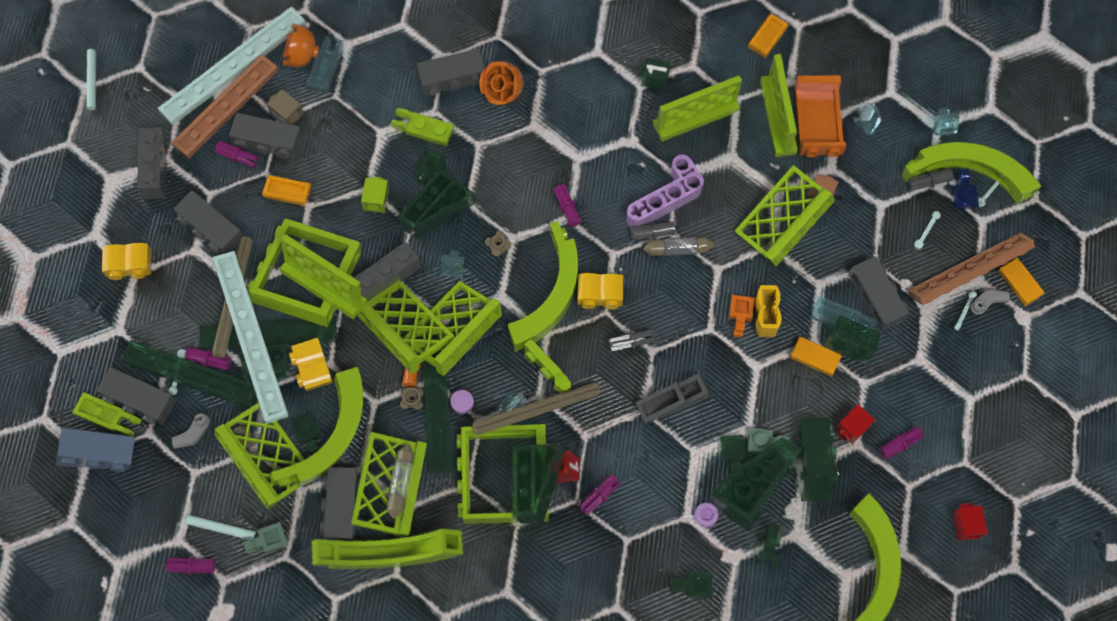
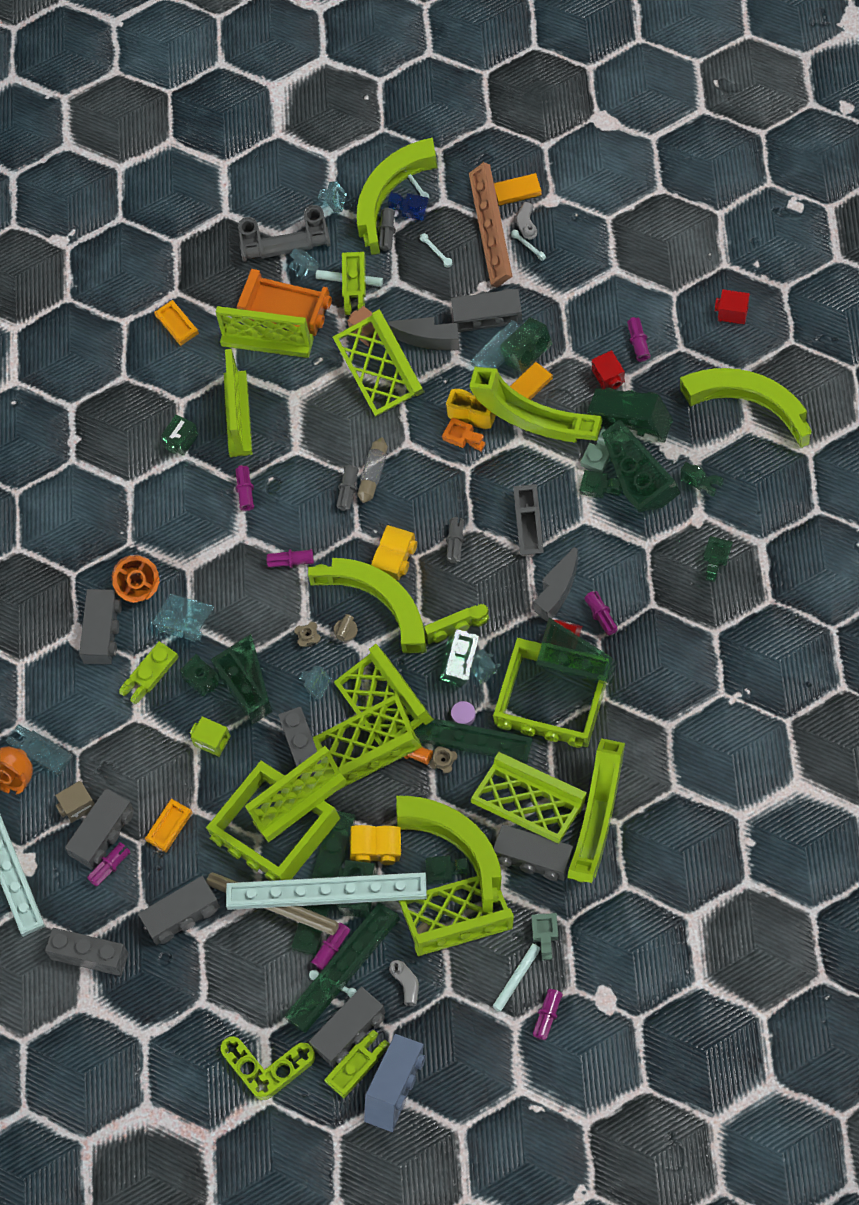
camera: 60 degrees left, 5 degrees down
(80, 346) = (269, 1074): none -> lime beam
(126, 260) = (190, 1004): yellow brick -> none
(224, 106) = (47, 863): nougat plate -> none
(400, 481) = (531, 784): piece -> none
(483, 135) = (182, 616): none -> clear light blue hinge
(510, 379) = (458, 658): none -> brick
(513, 274) = (345, 629): none -> dark tan plate
(536, 408) = (497, 642): dark tan axle -> none
(615, 446) = (557, 586): none -> dark grey slope
(623, 144) = (244, 488): none -> magenta axle
(662, 197) = (318, 467): lavender beam -> none
(706, 515) = (651, 527): lavender tile -> none
(779, 364) = (528, 415): none -> lime arch
(834, 249) = (425, 334): none -> dark grey slope
(863, 167) = (353, 279): none -> lime hinge
(868, 73) = (254, 246): none -> dark grey piece
(868, 165) = (336, 276): none -> light aqua bar

